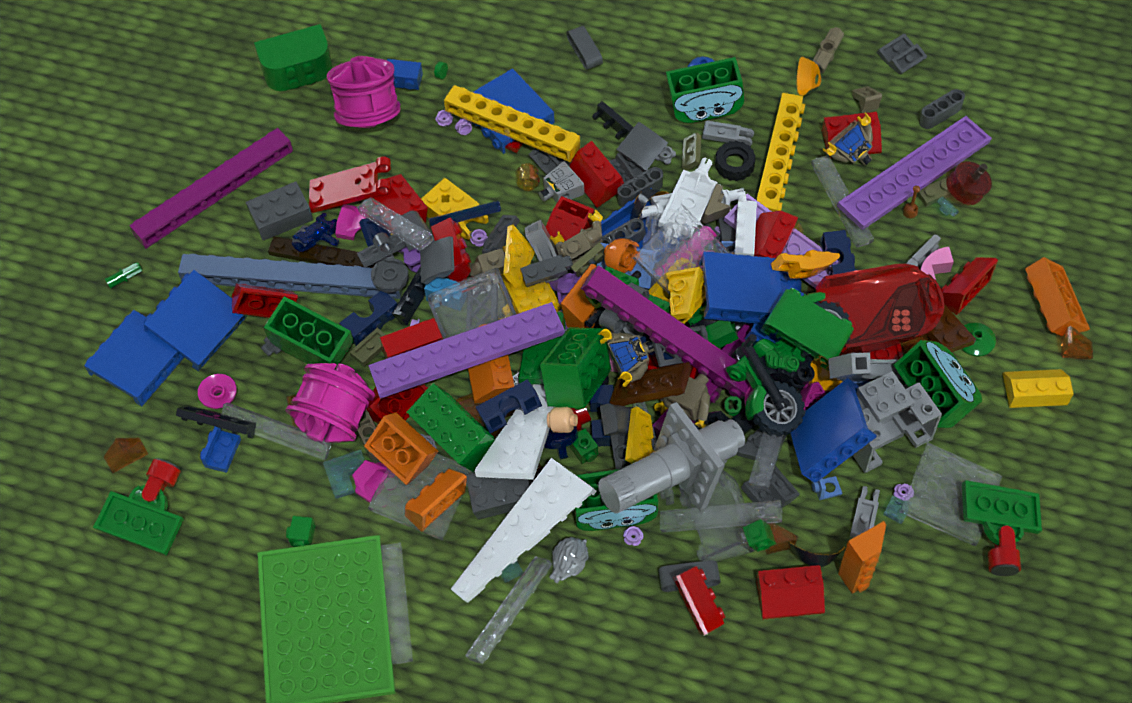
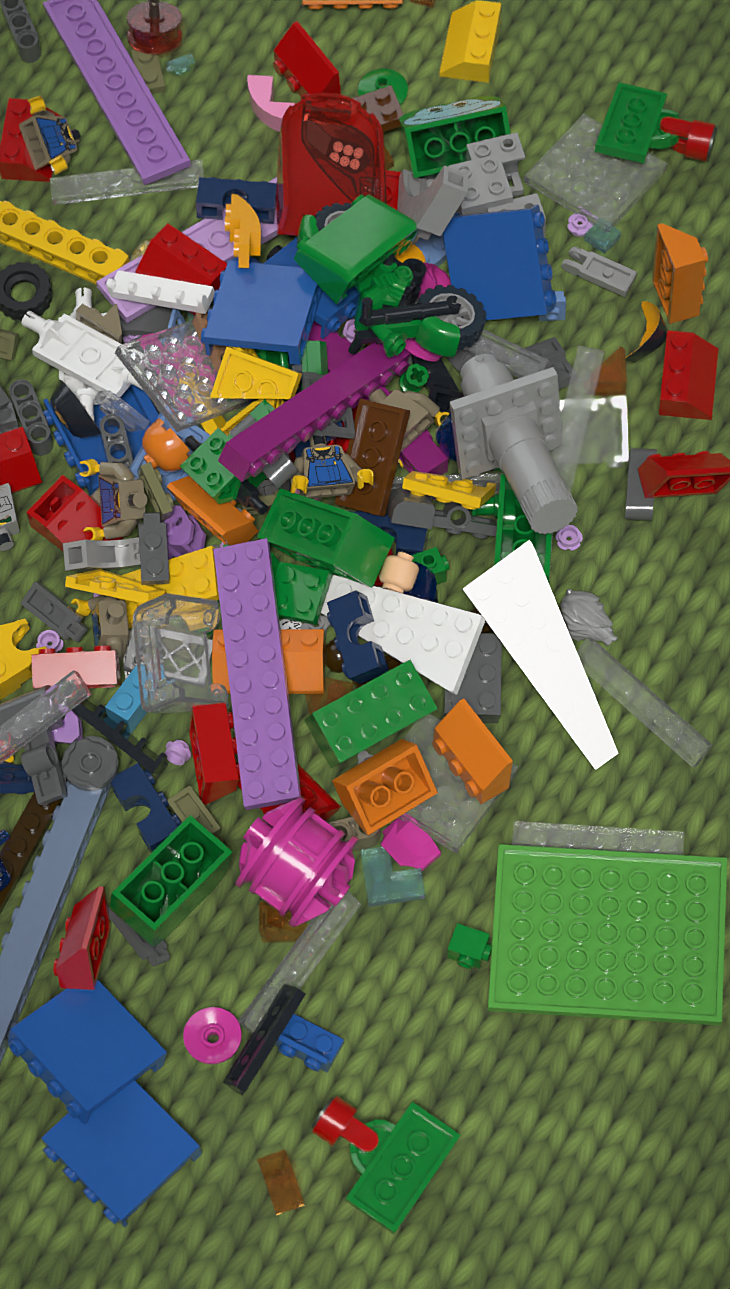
camera: 75 degrees left, 5 degrees up
(437, 260) = (106, 681): dark grey slope -> none
(468, 213) = (19, 643): clear blue axle -> none
(759, 535) = (617, 383): green brick -> none
(908, 210) = (167, 105): dark orange hinge -> none
(928, 248) = (248, 115): light grey hinge -> none

